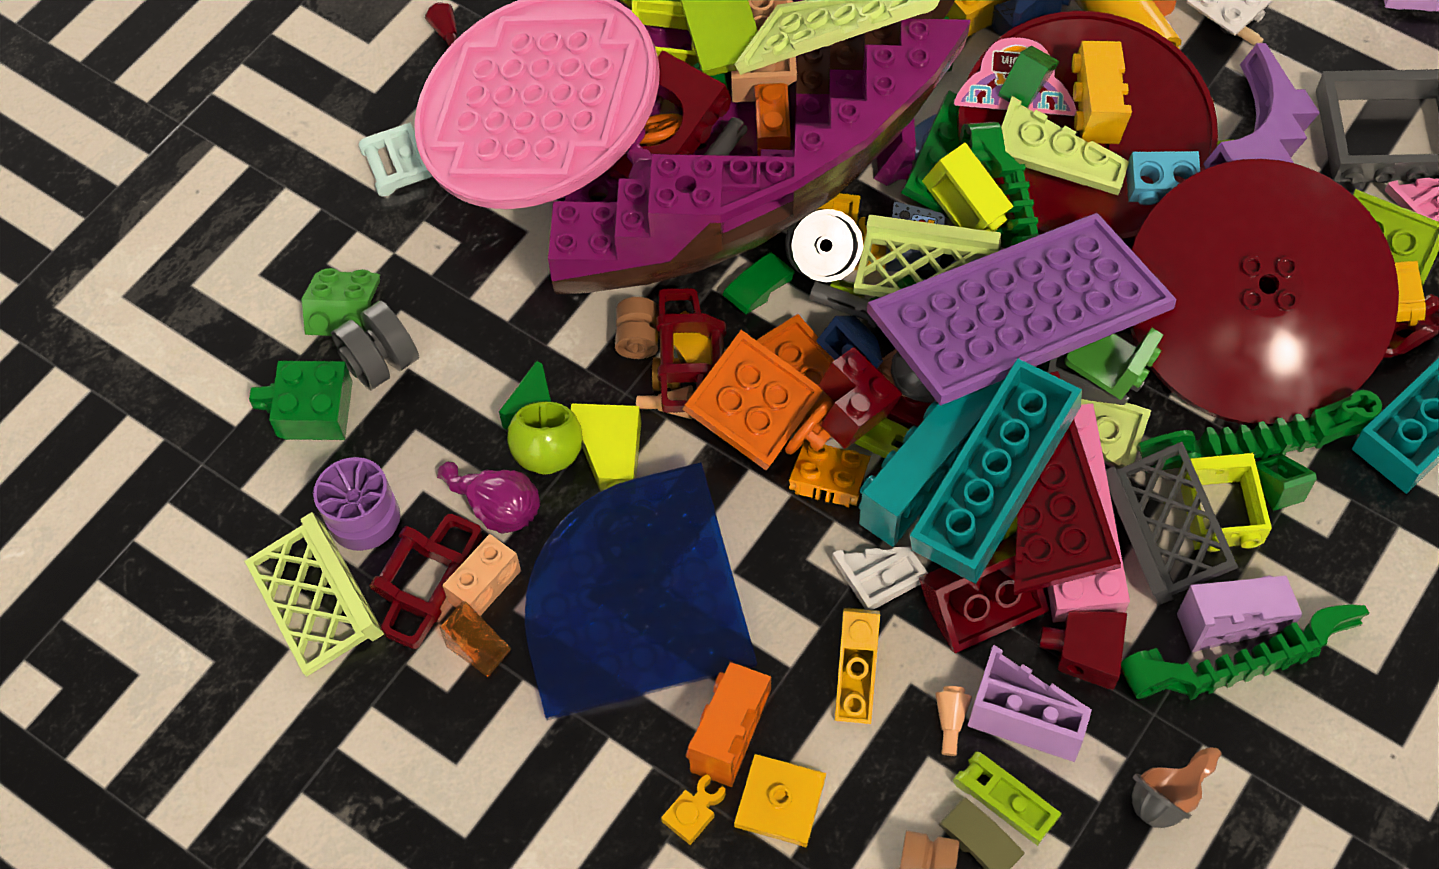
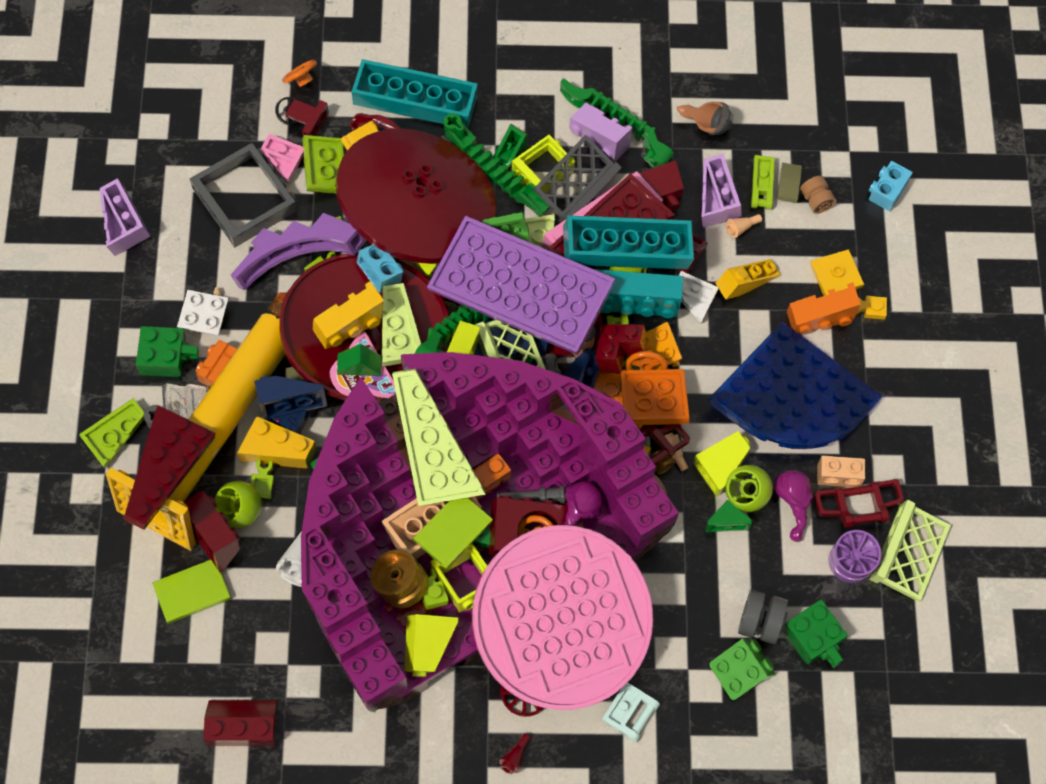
camera: 130 degrees left, 5 degrees up
(473, 639) = (875, 453): clear orange slope -> none

